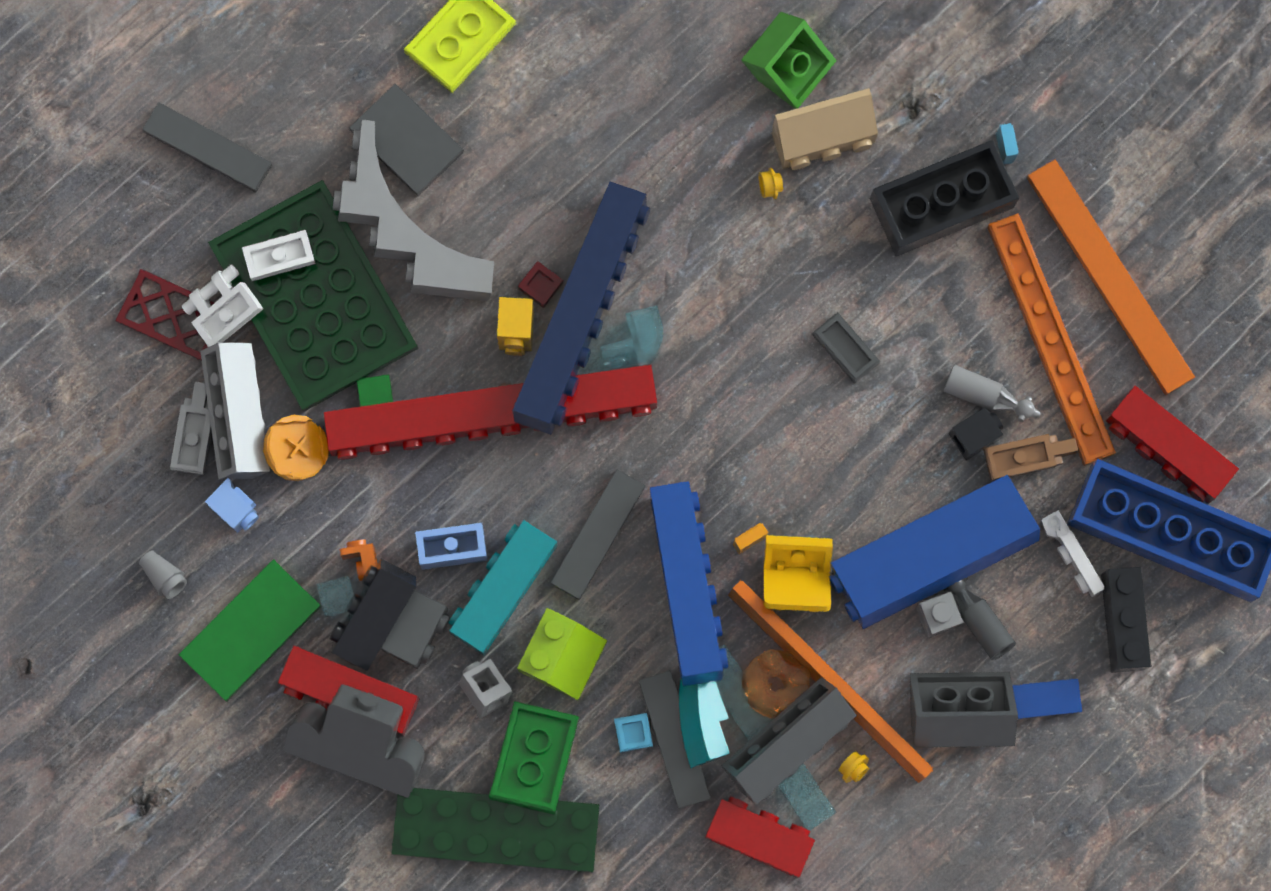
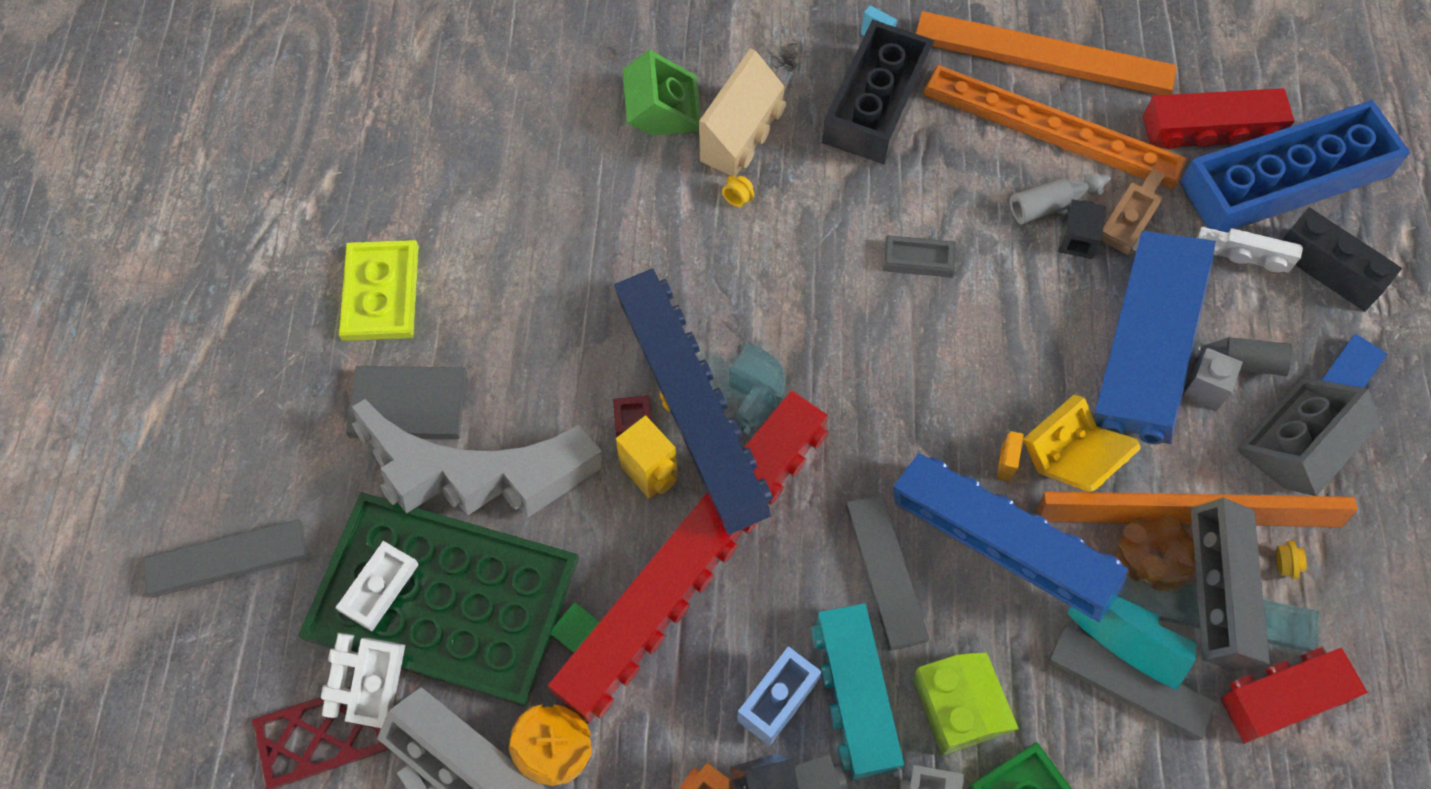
camera: 40 degrees left, 15 degrees down
(633, 732) = (1092, 711): medium azure tile -> none

